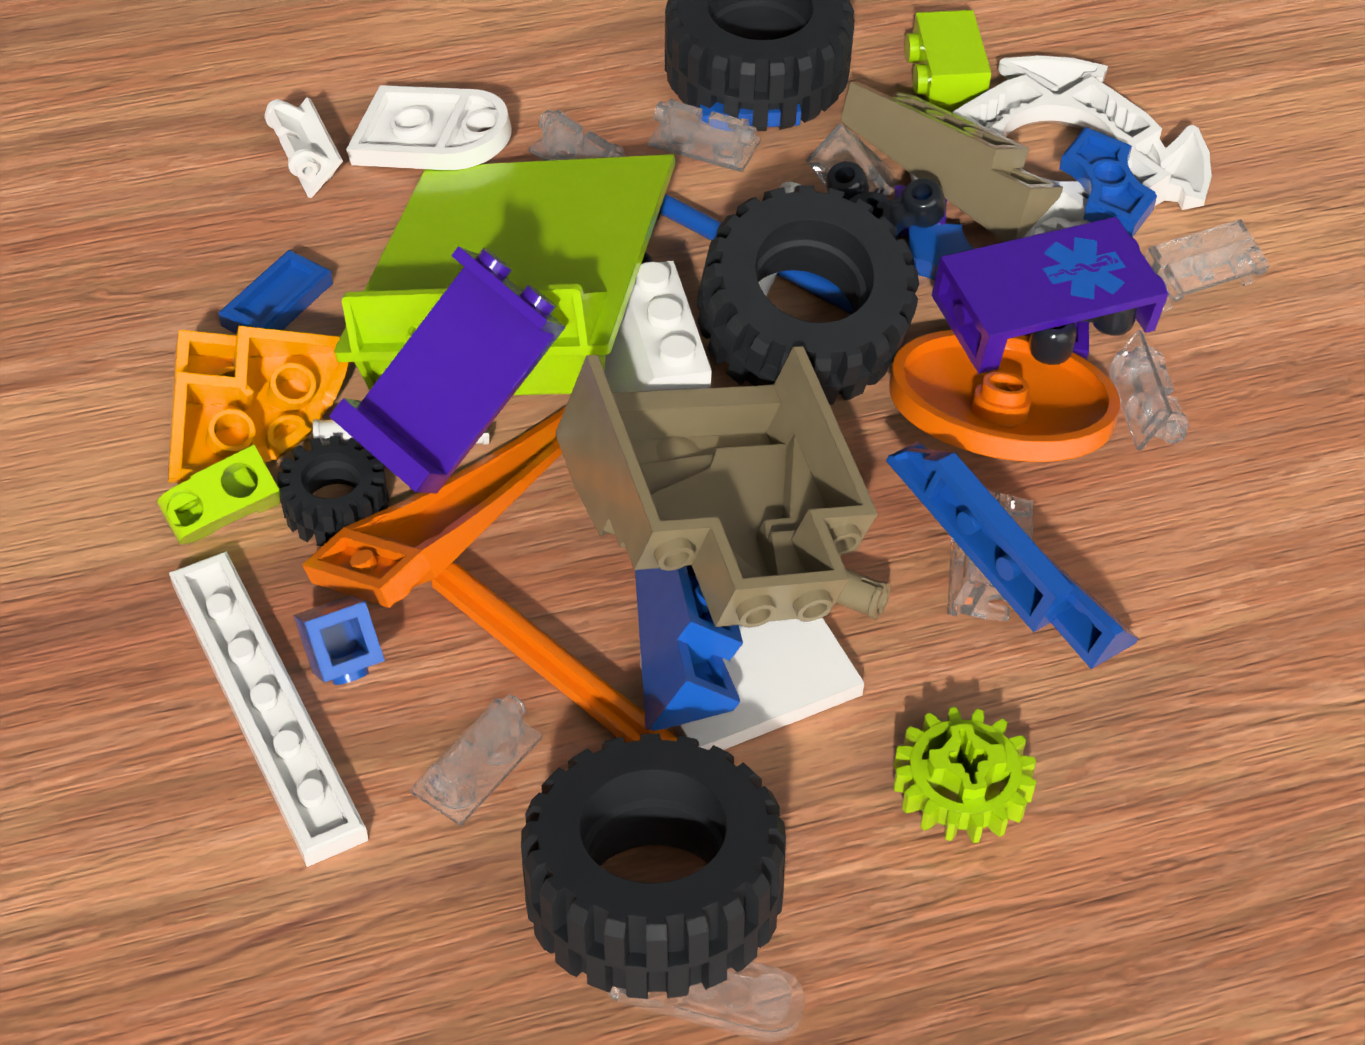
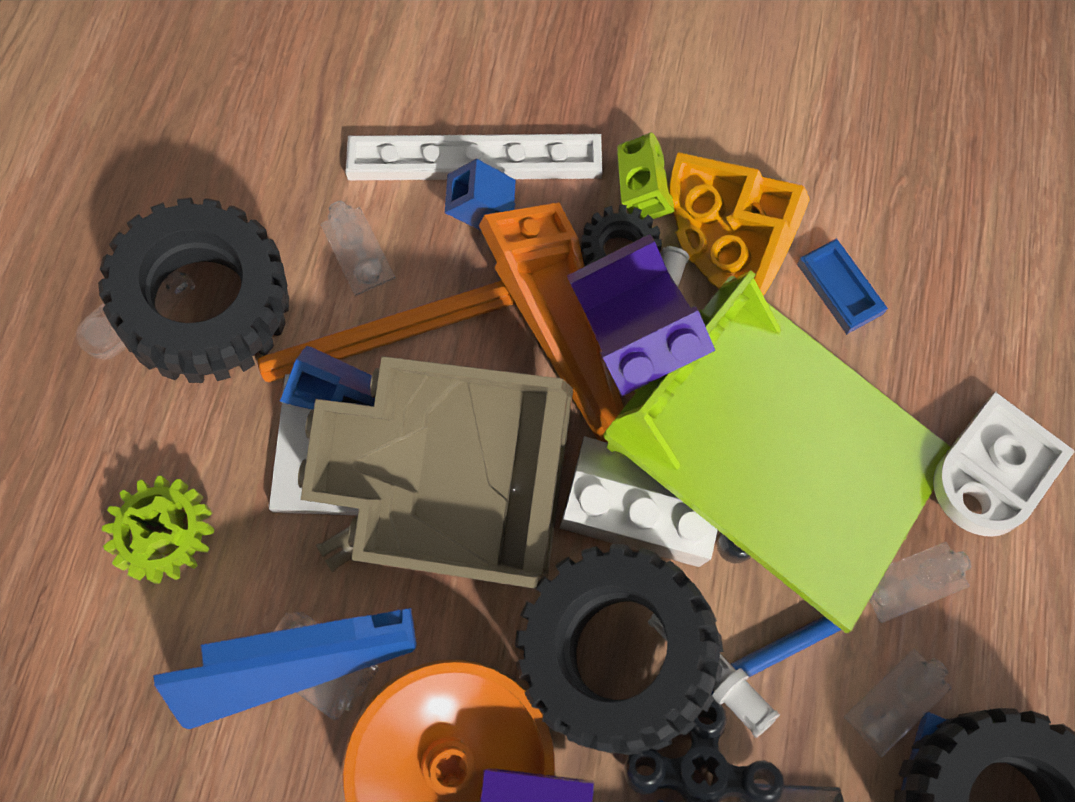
camera: 120 degrees right, 20 degrees up
(305, 142) = (991, 356): white hinge -> none

